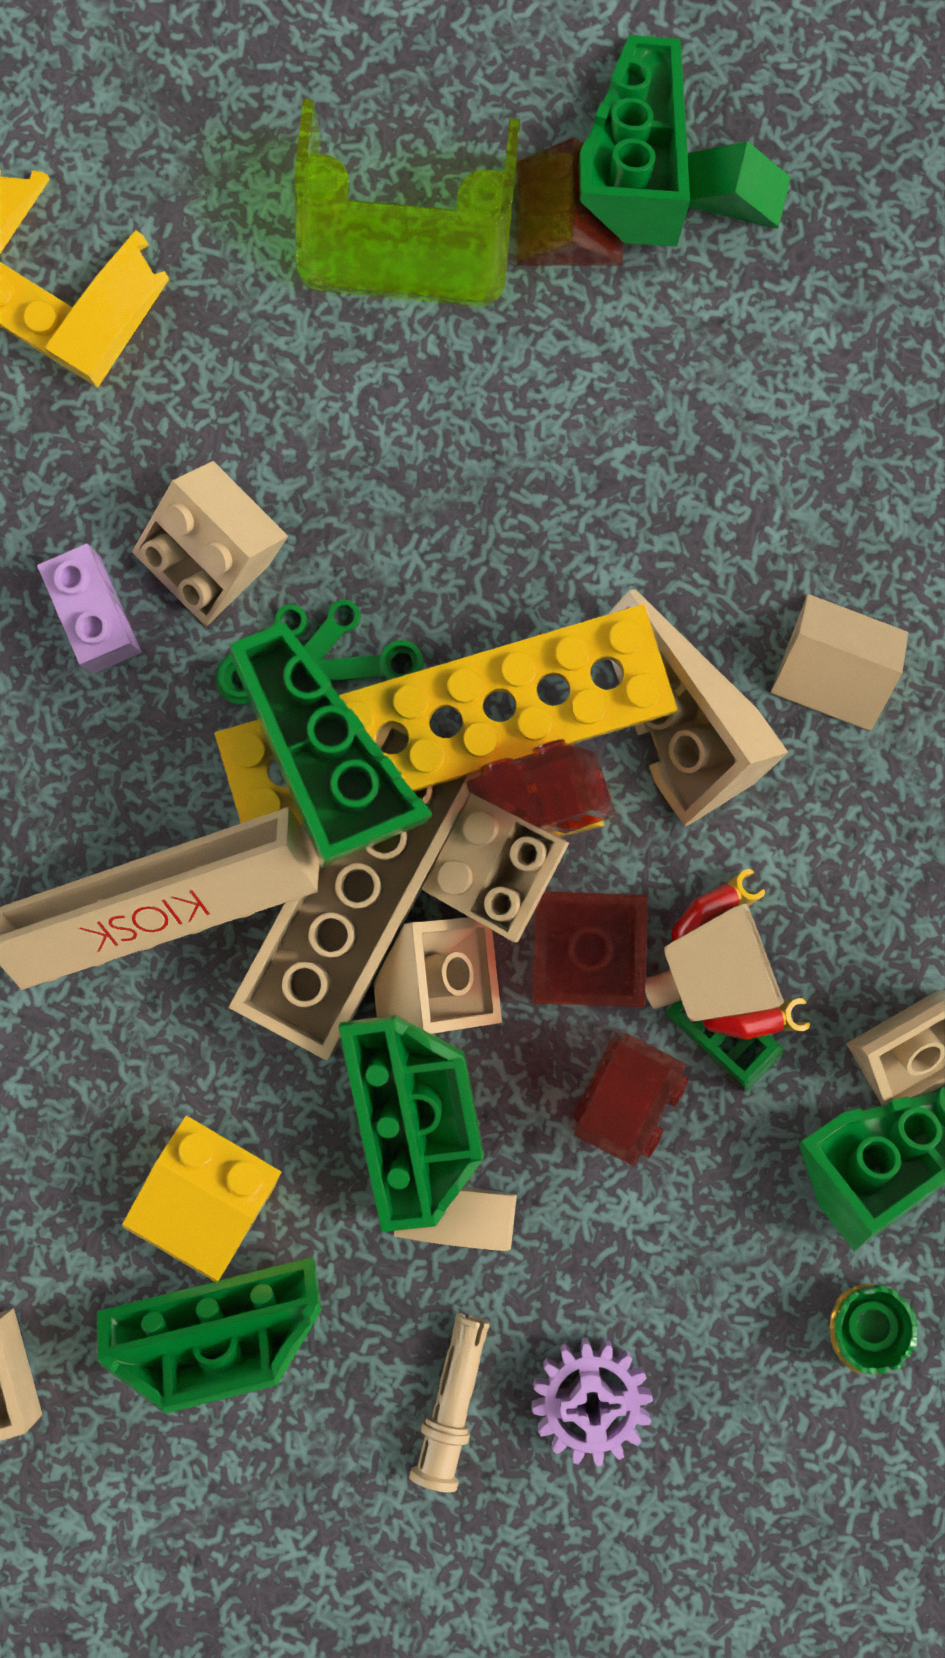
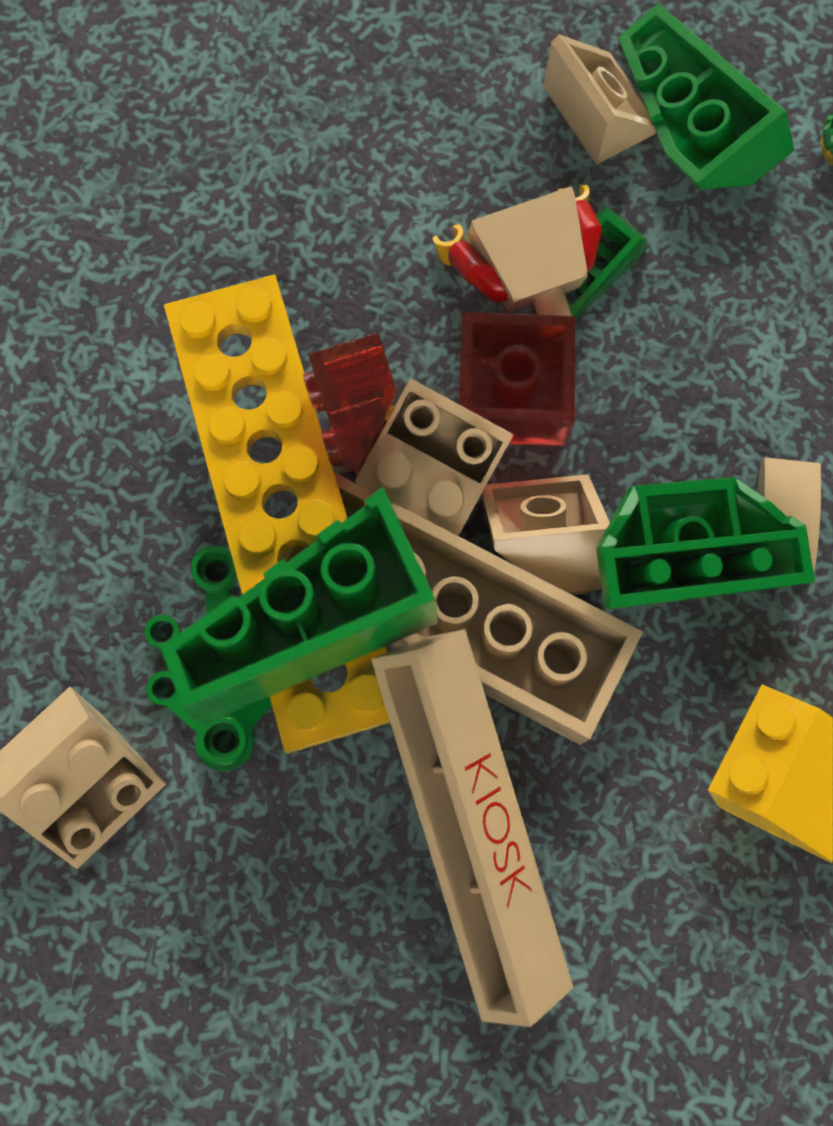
camera: 95 degrees left, 10 degrees down
(89, 608) = (135, 912): lavender brick -> none
(628, 1098) = (662, 338): clear red brick -> none
(715, 738) = (316, 271): tan wedge -> none
(841, 663) = (235, 158): tan slope -> none

